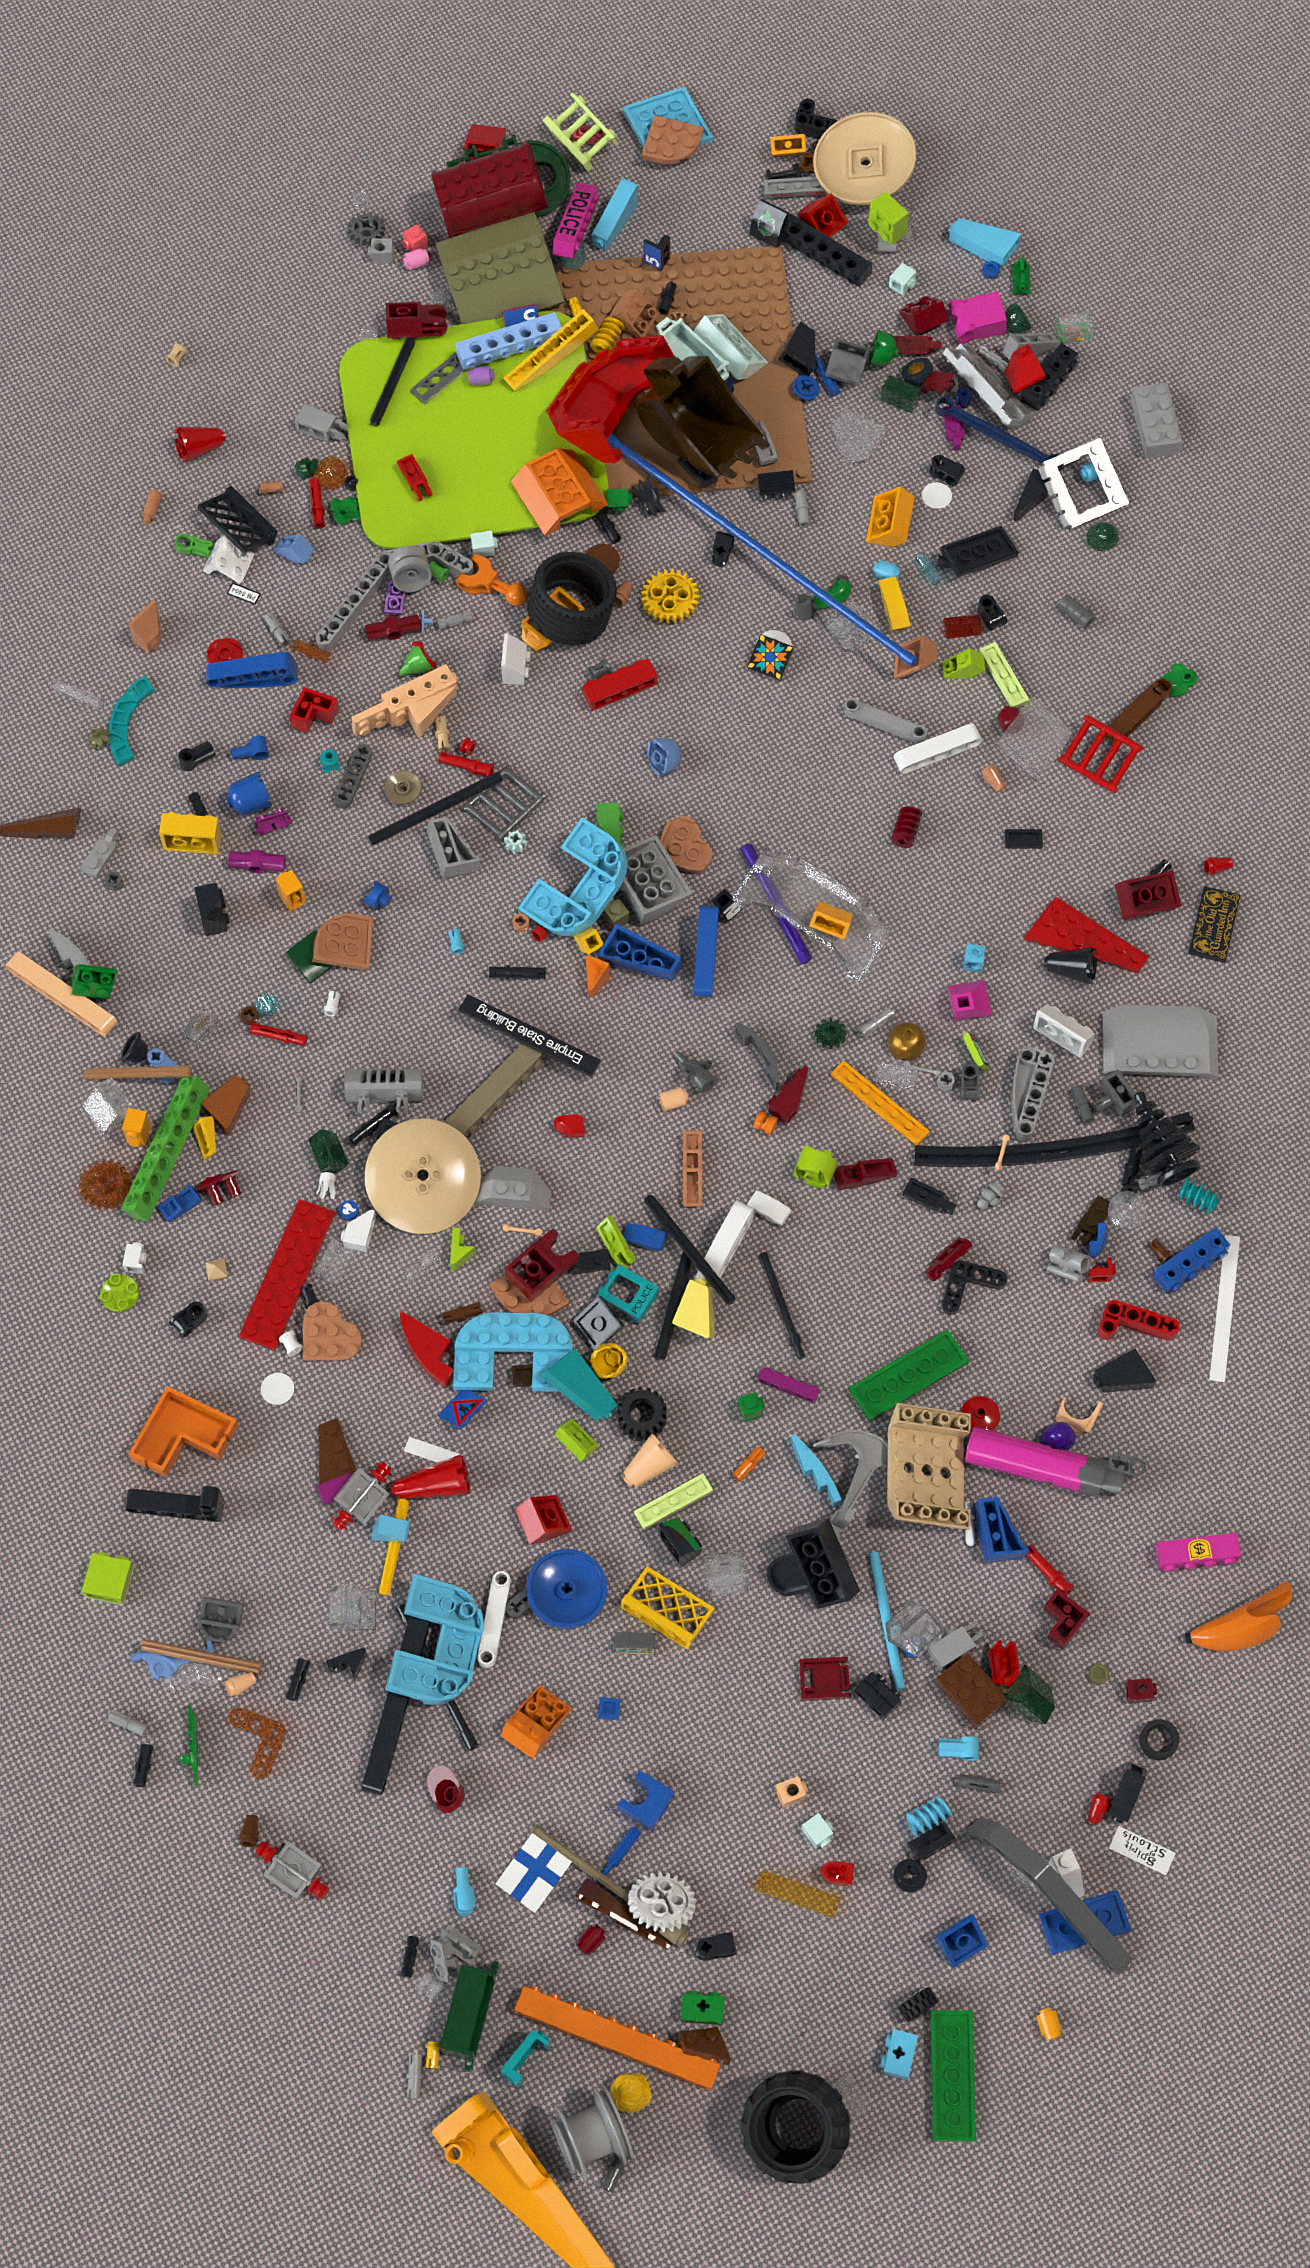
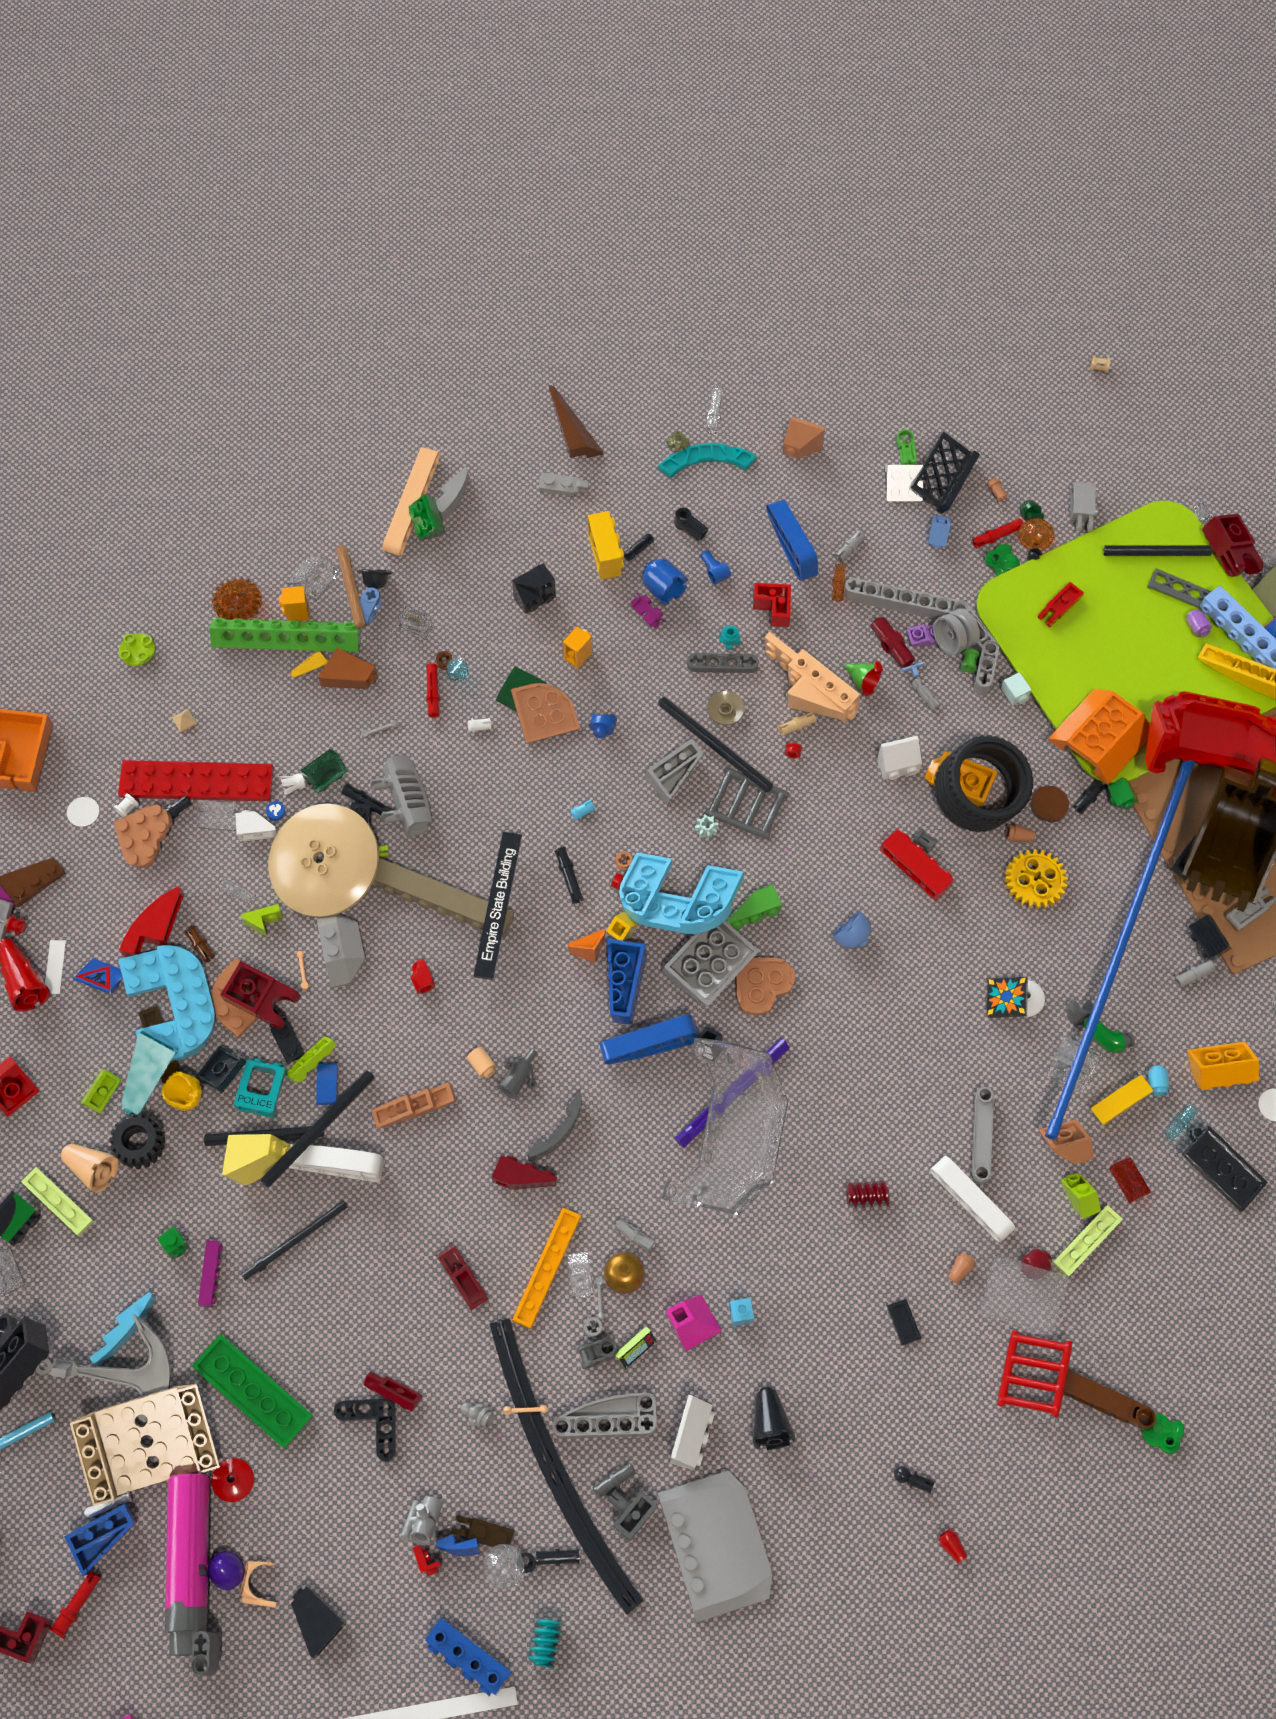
camera: 70 degrees right, 0 degrees up
(110, 885) = (538, 499): dark grey bush -> none
(134, 1258) = (172, 648): white brick -> none
(151, 506) = (932, 400): nougat cylinder -> none
(180, 1204) = (239, 668): blue slope -> none
(188, 1320) = (124, 712): black piece -> none
(197, 441) = (1015, 411): red cone -> none
(211, 1185) = (263, 685): dark red connector -> none
(224, 650) = (808, 512): red tile -> none
(243, 593) = (877, 507): sticker -> none
(256, 861) = (601, 611): magenta piece -> none
(474, 766) = (774, 763): red pin -> none
(487, 580) = (979, 707): orange piece -> none
(616, 914) = (661, 944): olive brick -> none
(648, 497) = (1139, 822): black piece -> none
(722, 547) = (1112, 910): black piece -> none
(748, 1464) = (115, 1261): orange axle -> none
(765, 1122) = (485, 1160): orange wheel -> none
(769, 1207) = (394, 1193): white slope -> none
(815, 1167) = (447, 1223): lime brick -> none
(831, 920) = (729, 1151): light orange brick -> none
(833, 1028) = (605, 1200): clear green gear -> none
(928, 1196) = (455, 1349): black hinge -> none
(993, 615) = (1154, 1206): black piece -> none
(1069, 929) = (813, 1409): red wing -> none
(1076, 611) = (1198, 1294): dark grey axle -> none
(1139, 1324) = (377, 1620): red beam -> none
(1148, 895) = (882, 1477): dark red slope -> none
(1151, 1180) = (554, 1588): light grey axle -> none
(1160, 1251) = (470, 1617): reddish brown pin -> none
(1164, 1144) = (580, 1586): black plant -> none
(1214, 924) = (880, 1563): black tile -> none

